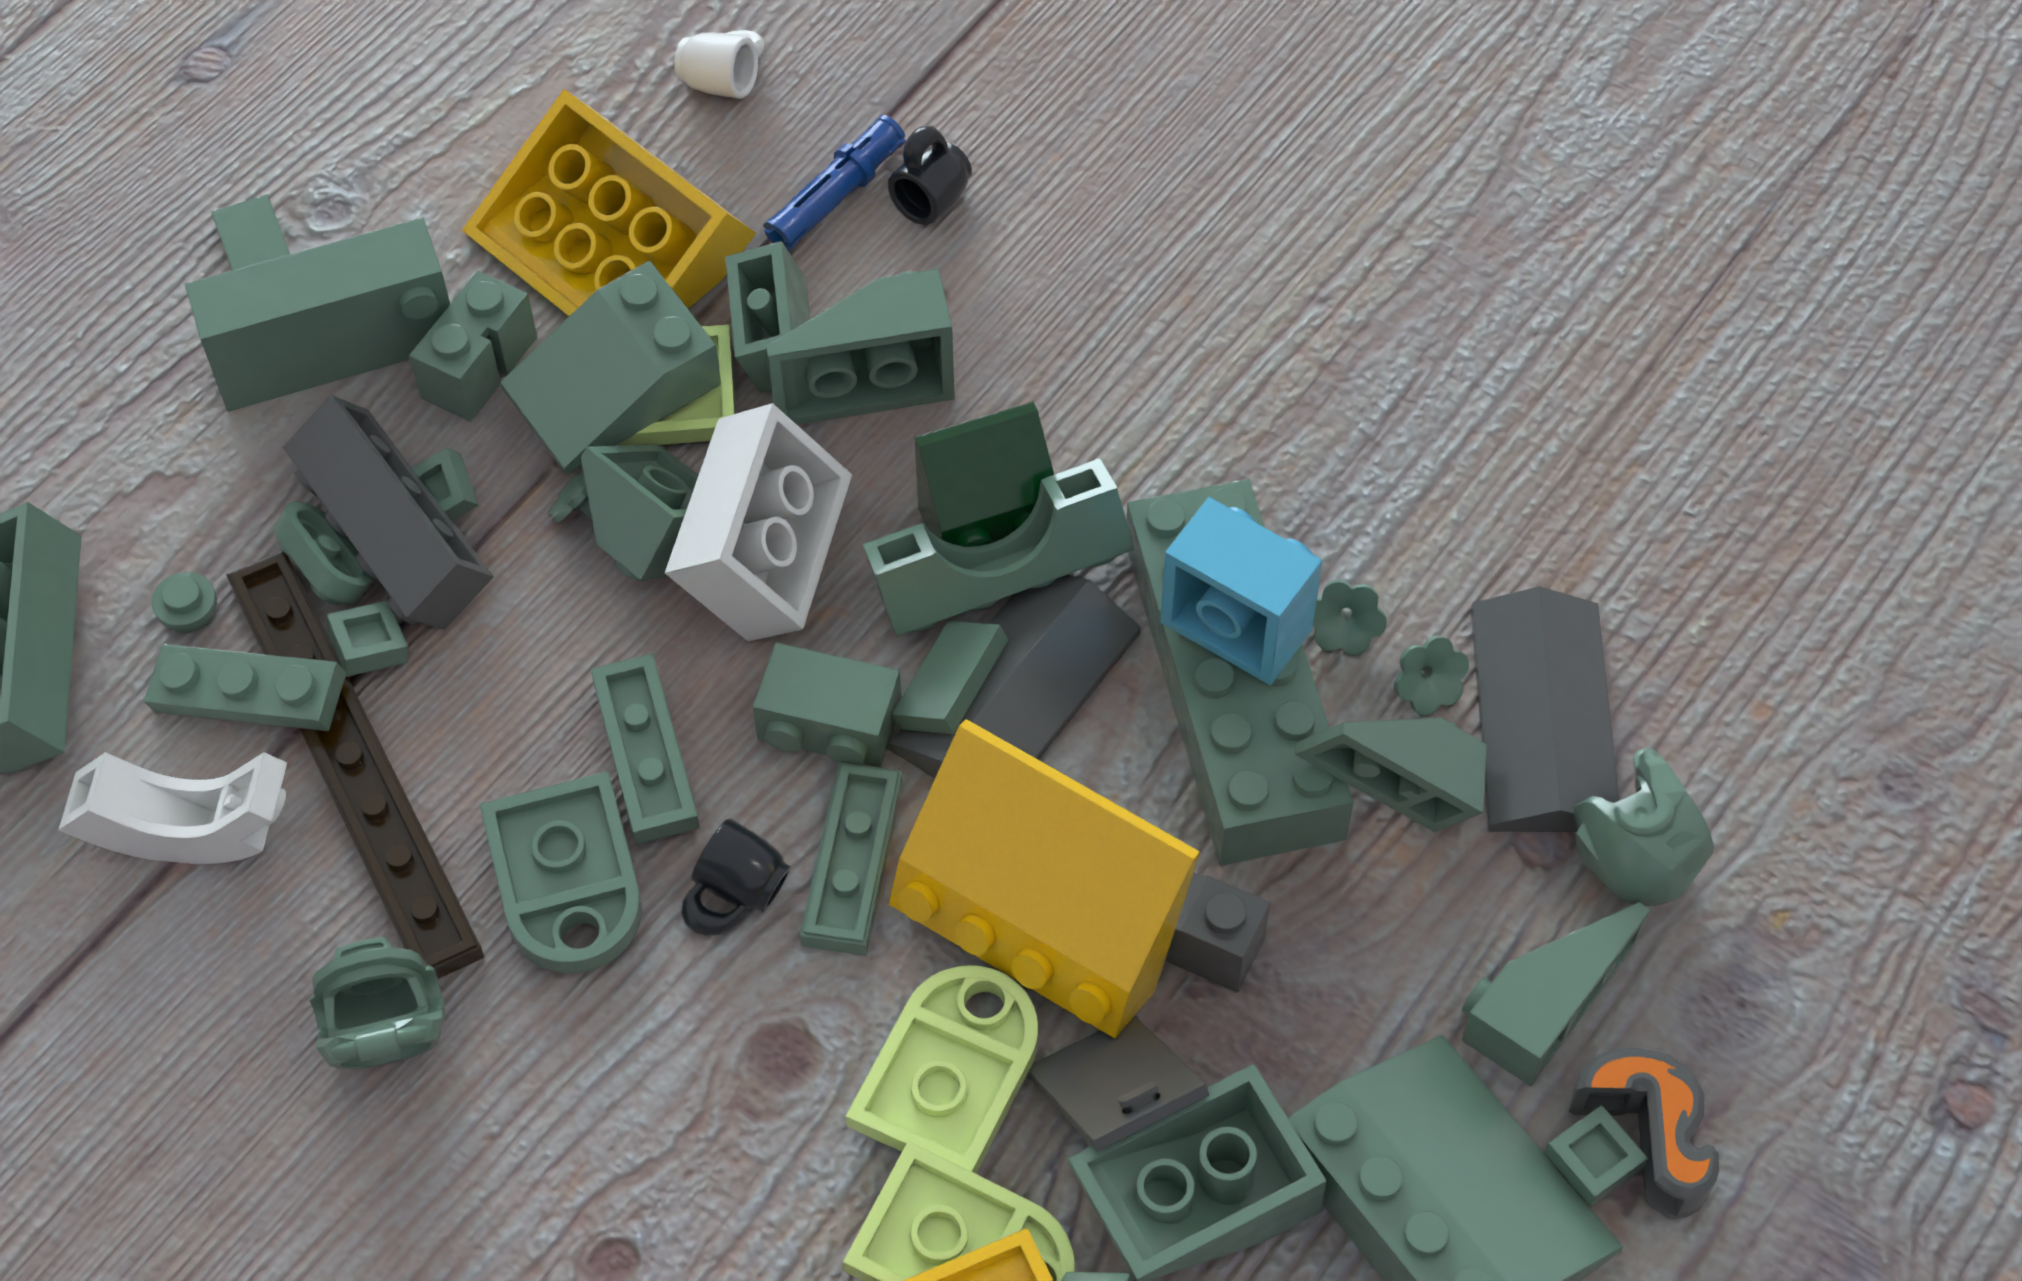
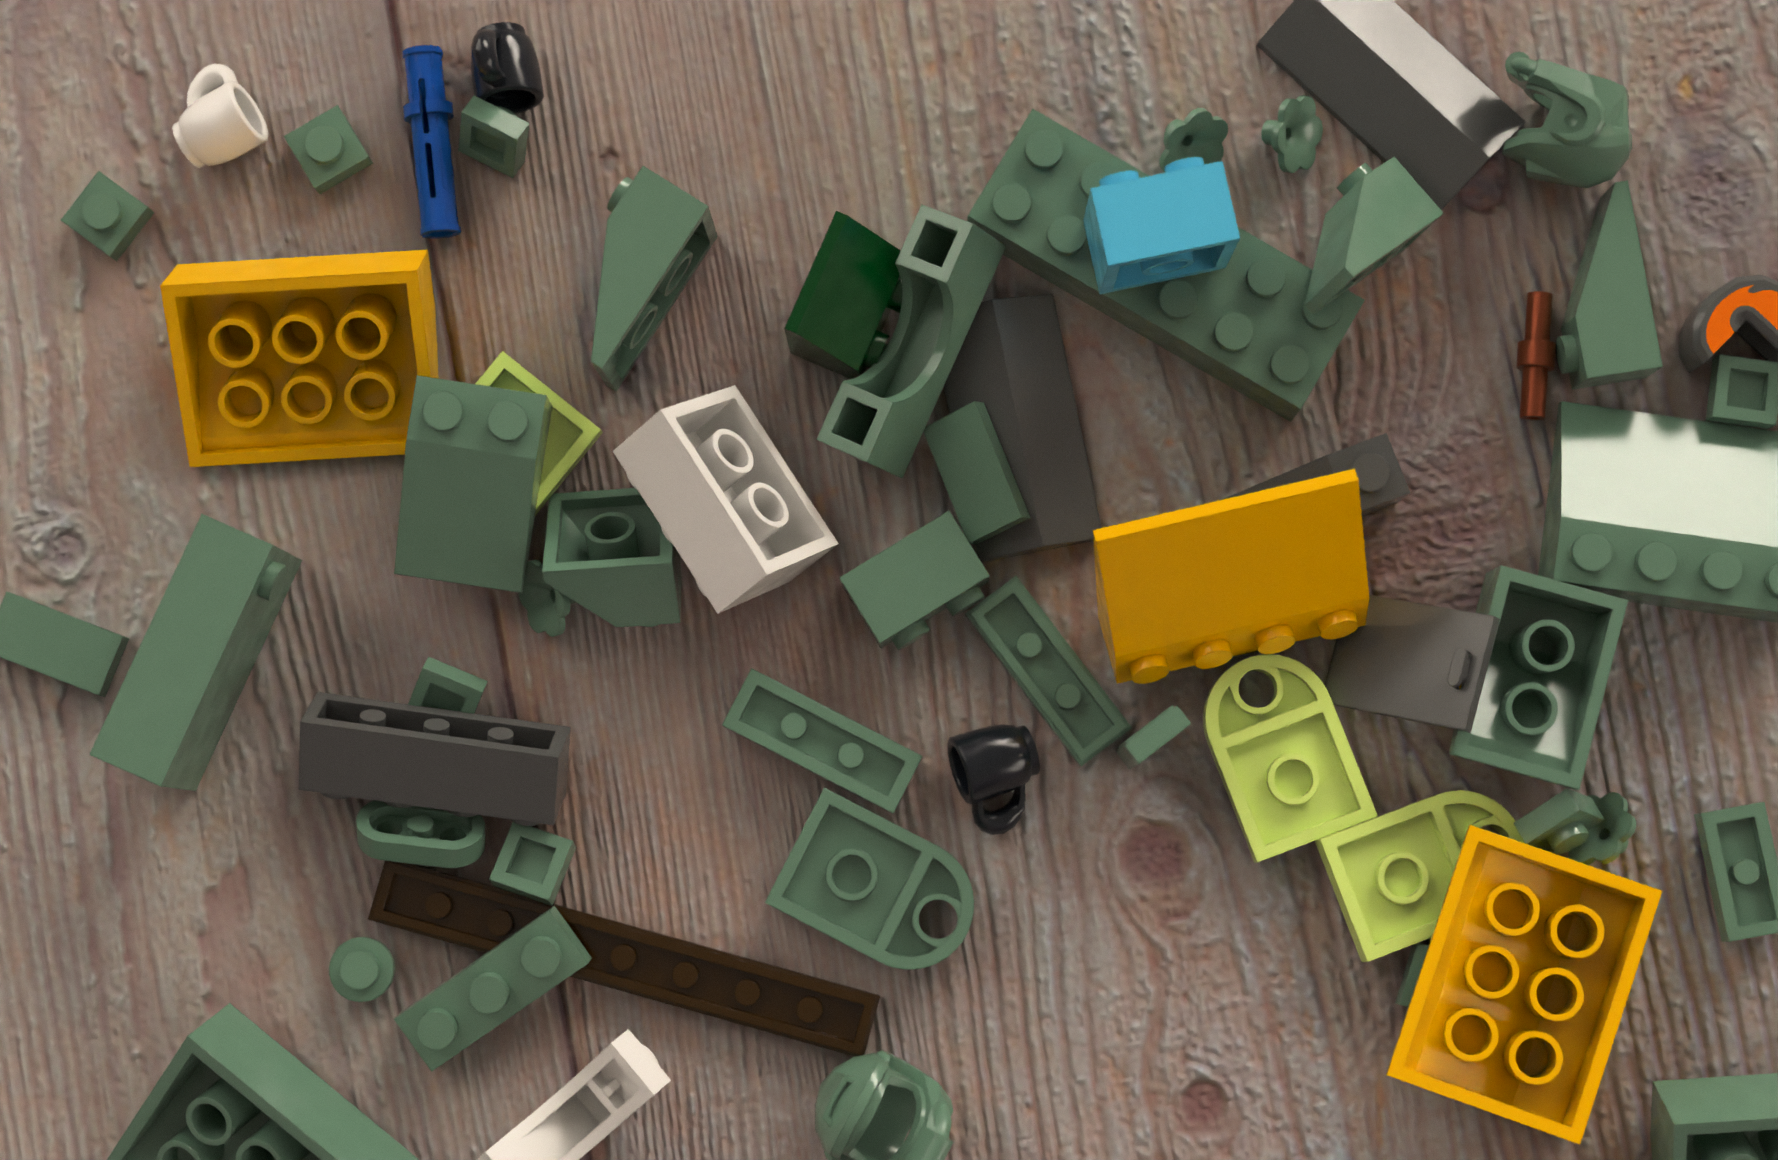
camera: 40 degrees left, 25 degrees up
(455, 359) = (333, 586): sand green piece -> none
(591, 59) = (107, 216): none -> sand green plate
(765, 303) = (527, 314): sand green brick -> none
(768, 137) = (328, 149): none -> sand green plate
(865, 944) = (1152, 736): none -> sand green tile
(876, 209) = (493, 136): none -> sand green plate
(1454, 983) = (1536, 355): none -> copper bar

